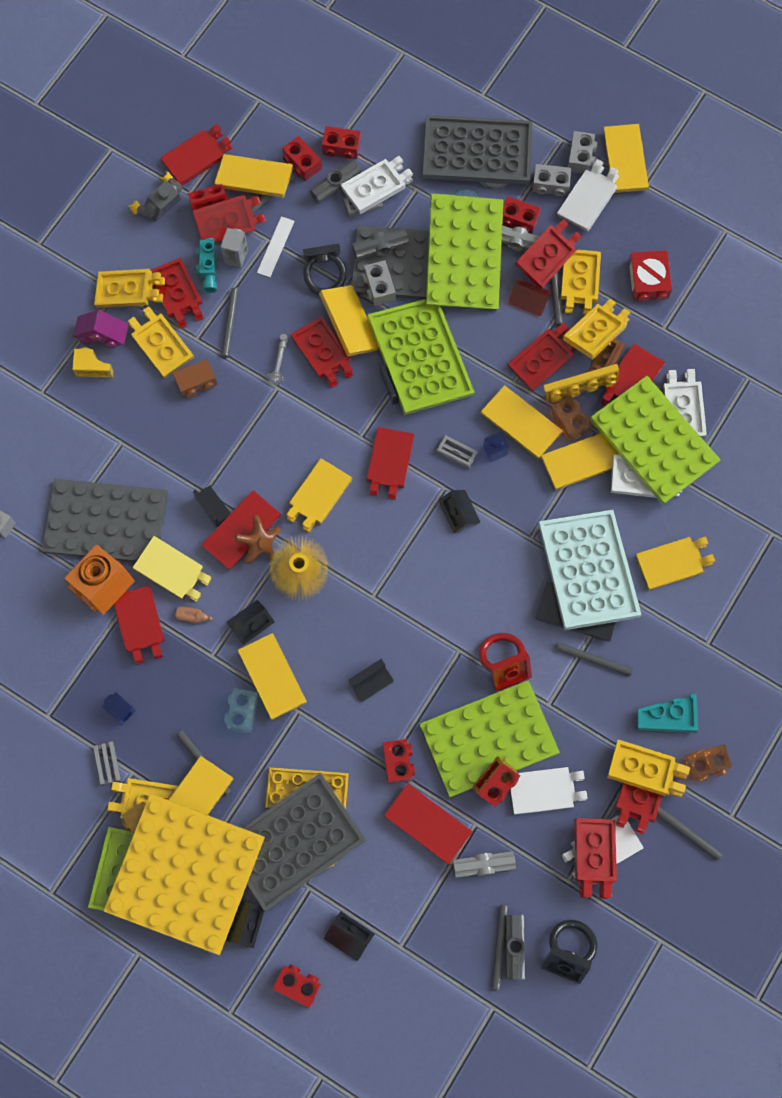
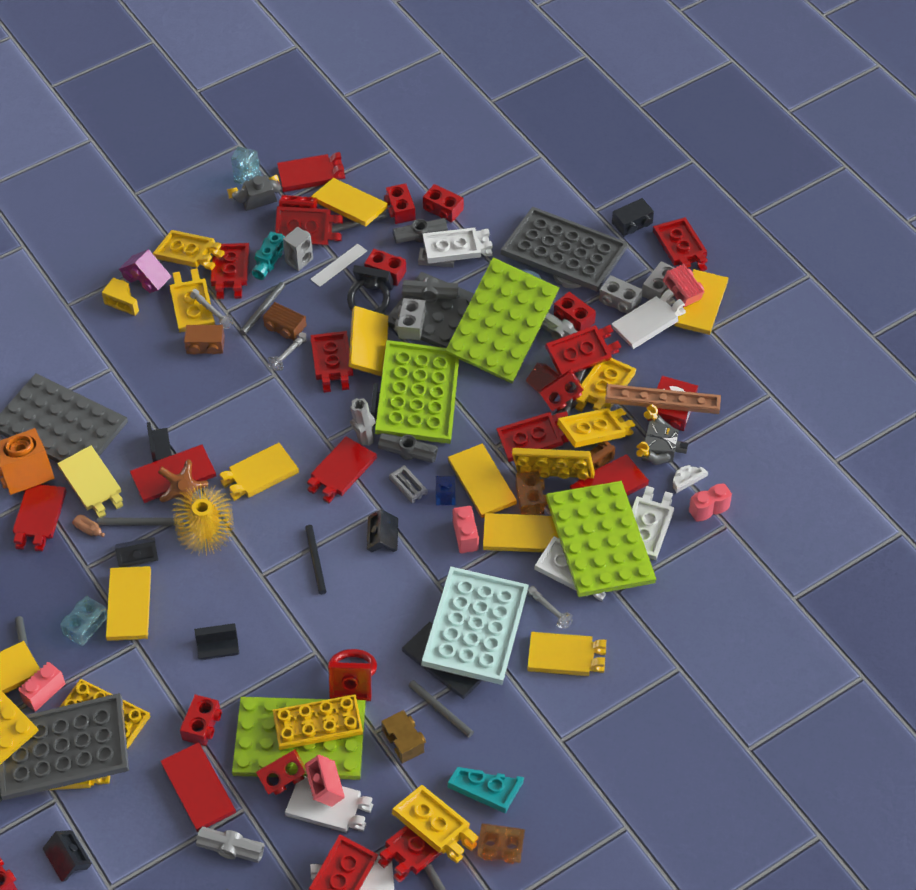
camera: 25 degrees right, 20 degrees down
(136, 175) = (245, 165): none -> clear light blue brick
(203, 350) = (225, 320): none -> light grey piece
(233, 591) = (136, 522): none -> dark grey bar
(241, 791) = (41, 686): none -> coral brick
(259, 329) = (284, 321): none -> dark orange brick
(323, 236) = (387, 262): none -> red brick
(393, 411) = (362, 421): none -> light grey piece
(414, 562) = (315, 559): none -> black bar
(452, 415) = (400, 446): none -> dark grey piece
(501, 720) = (317, 722): none -> yellow tile
(523, 91) = (632, 217): none -> black brick
(532, 478) = (465, 529): none -> coral brick
(539, 775) = (324, 780): none -> coral brick
(547, 301) = (558, 386): none -> red brick
(579, 103) = (681, 243): none -> red tile
(579, 699) = (402, 732): none -> pearl gold brick
(608, 150) = (683, 285): none -> coral brick
(644, 277) = (663, 399): none -> nougat tile
(658, 318) = (660, 440): none -> dark grey torso
(658, 529) = (564, 620): none -> piece
(694, 343) = (687, 476): none -> white tile
(729, 363) = (710, 502): none -> coral brick

